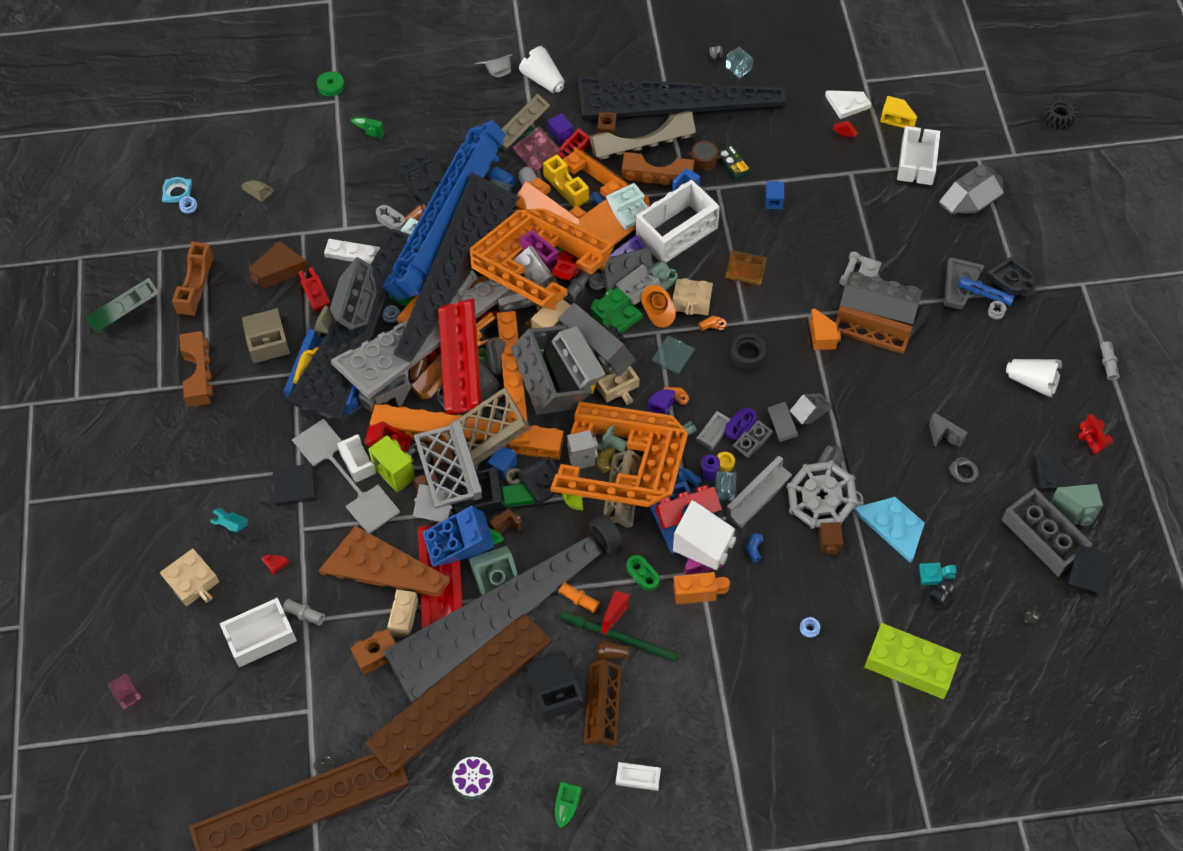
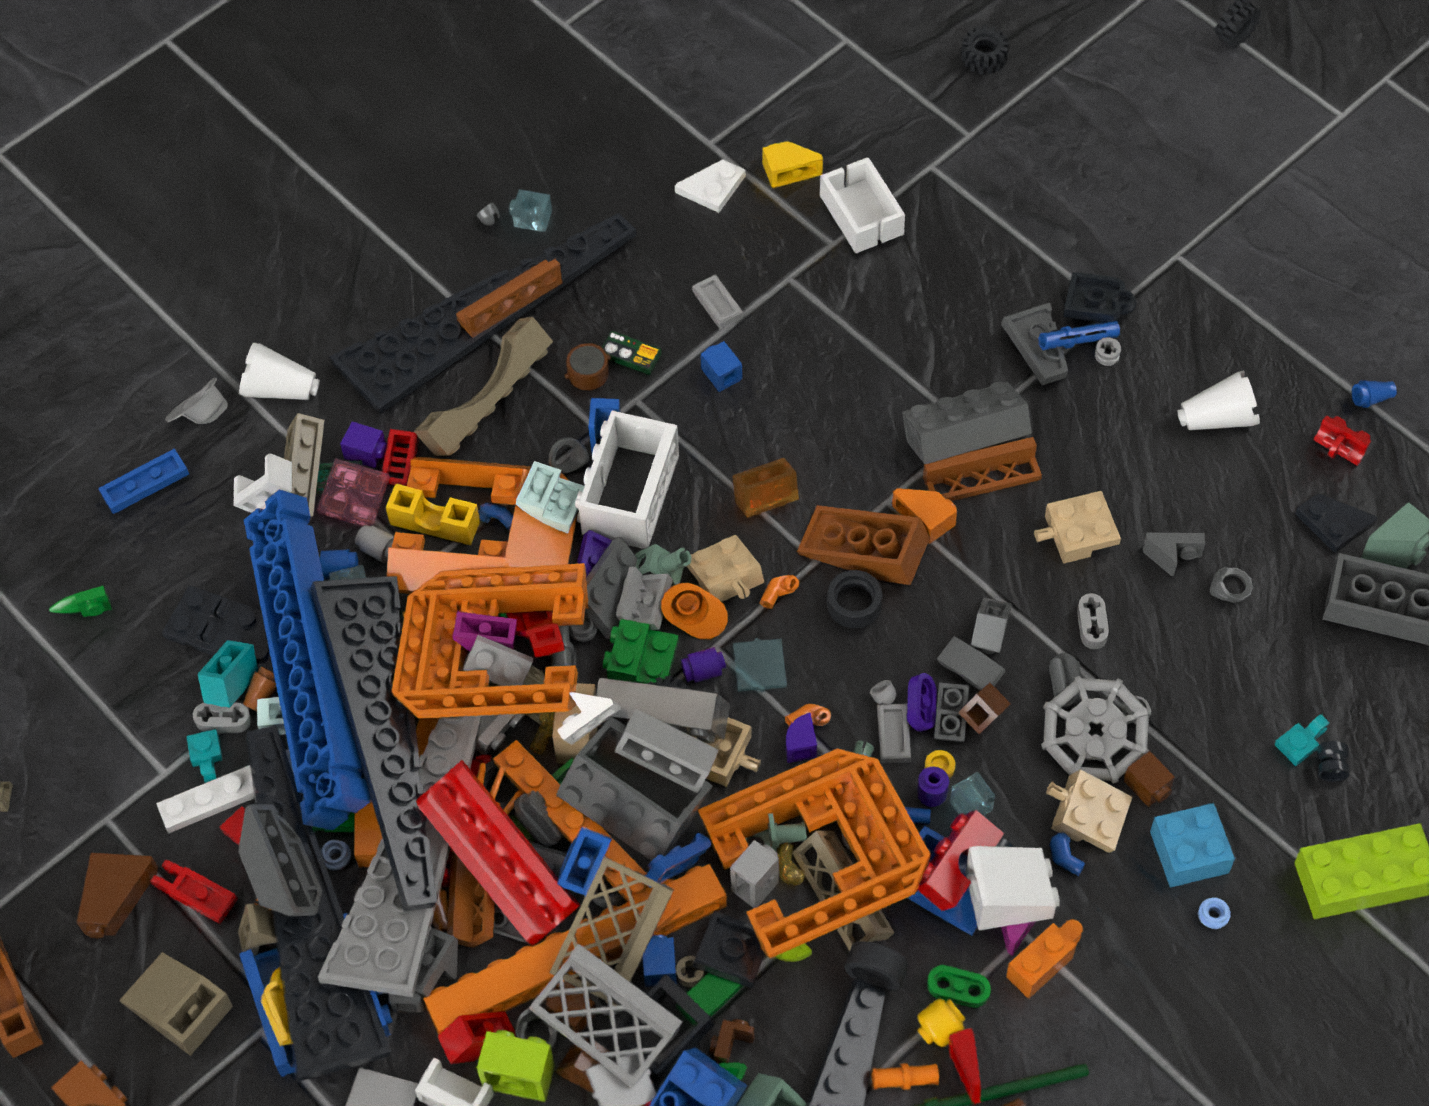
camera: 35 degrees left, 0 degrees up
(370, 228) = (204, 751): none -> teal plate
(406, 197) = (228, 673): none -> teal brick
(442, 85) = (143, 481): none -> blue plate
(495, 382) = (583, 860): none -> blue slope
(501, 116) = (253, 494): none -> white panel
(547, 418) = (678, 859): none -> blue plate
(554, 317) = (594, 712): none -> white slope
(606, 122) = (419, 392): reddish brown brick -> none
(618, 581) = (940, 1021): none -> yellow head
(637, 169) = (512, 438): dark orange arch -> none
(642, 335) = (703, 665): none -> dark purple brick
(656, 198) = (577, 459): none -> dark grey piece
(690, 98) = (510, 297): none -> dark orange fence
(724, 407) = (883, 692): none -> light grey hinge
(758, 493) = (1017, 780): light grey fence -> none
(769, 445) = (984, 708): none -> reddish brown brick
(778, 327) = (866, 541): none -> dark orange slope
(785, 533) = (1090, 810): none -> tan plate
(801, 162) = (717, 301): none -> light grey tile
(825, 584) = (1192, 845): none -> dark azure brick
(845, 129) = (739, 223): red tile -> none
(865, 439) = (1099, 620): none -> light grey beam
(868, 266) = (912, 392): light grey plate -> none
(894, 524) = (1207, 709): medium azure wing -> none
(902, 388) = (1079, 526): none -> tan plate
(973, 191) = (963, 214): wedge -> none
(1109, 360) = (1286, 335): light grey pin -> none
(1135, 420) = (1372, 392): none -> blue cone

